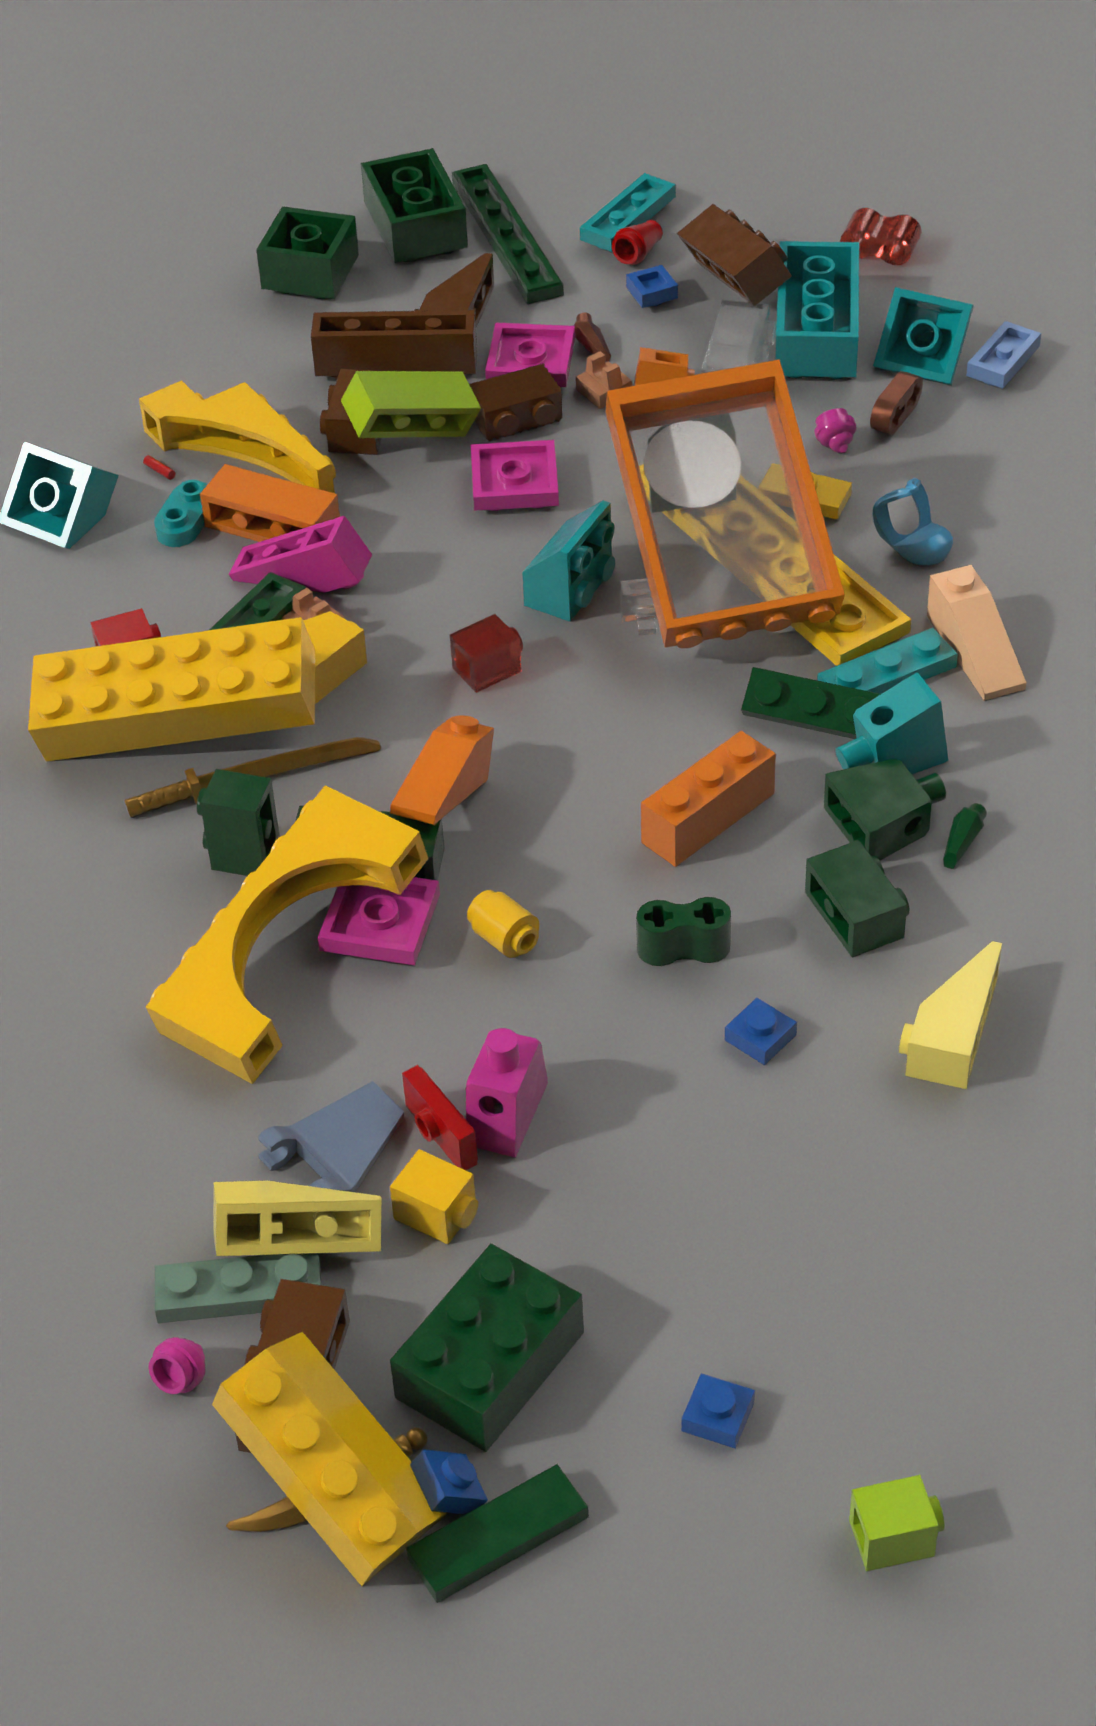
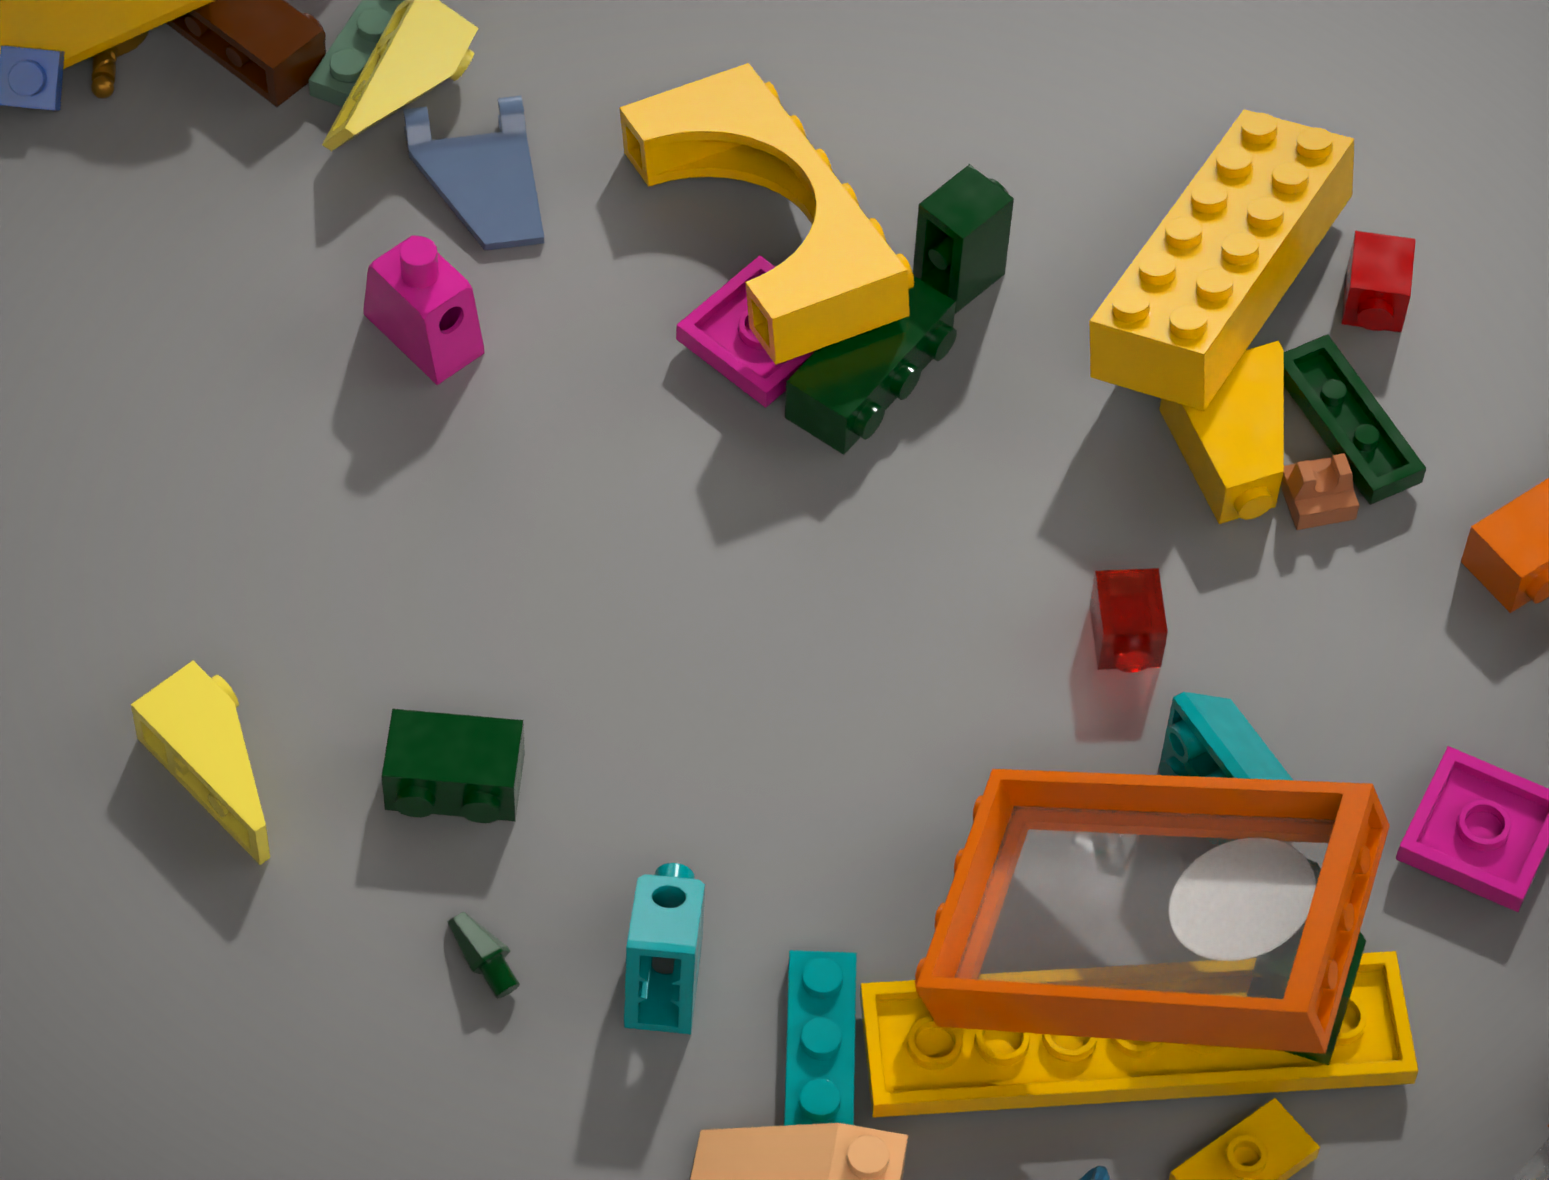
camera: 115 degrees right, 10 degrees up
(261, 767) = (1091, 264): pearl gold sword -> none
(317, 557) = (1430, 516): dark pink slope -> none
(434, 1197) = (345, 204): yellow brick -> none
(439, 1118) = (467, 246): red plate -> none
(446, 770) = (912, 450): orange slope -> none
(487, 1346) = (140, 162): dark green brick -> none
(503, 923) = (664, 427): yellow brick -> none
(683, 931) = (528, 578): dark green axle -> none
(708, 798) = (711, 706): orange brick -> none
(760, 1031) = (350, 589): blue plate -> none
(803, 702) = (799, 914): dark green plate -> none
(882, 805) = (575, 876): dark green torso -> none

